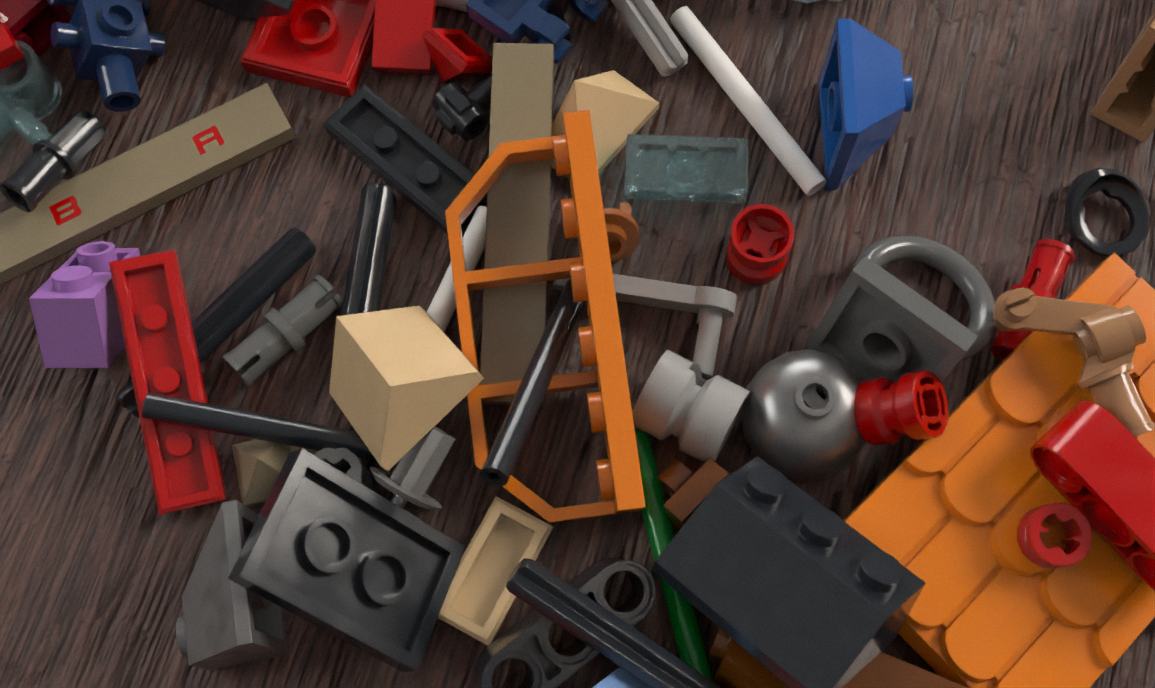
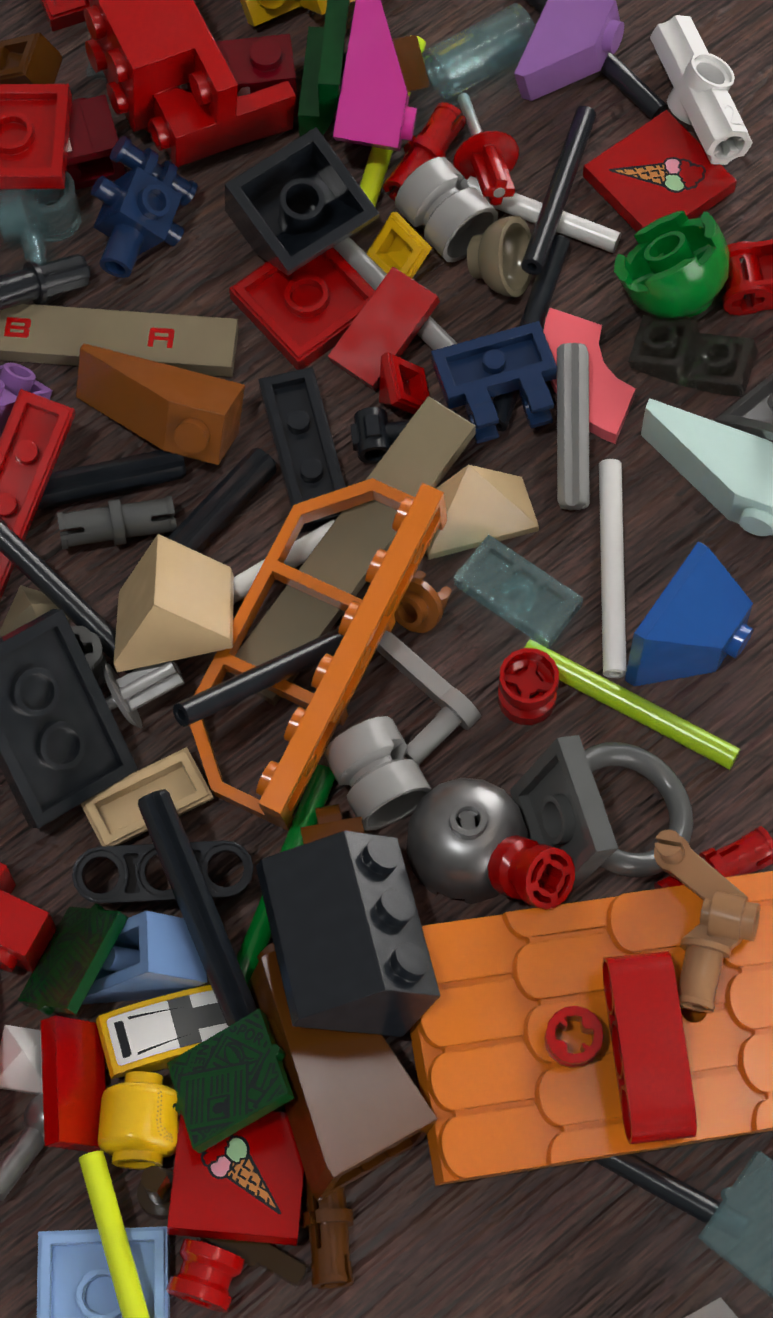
camera: 30 degrees right, 5 degrees down
(249, 196) = (162, 403): none -> dark orange slope
(865, 204) = (642, 710): none -> lime piece

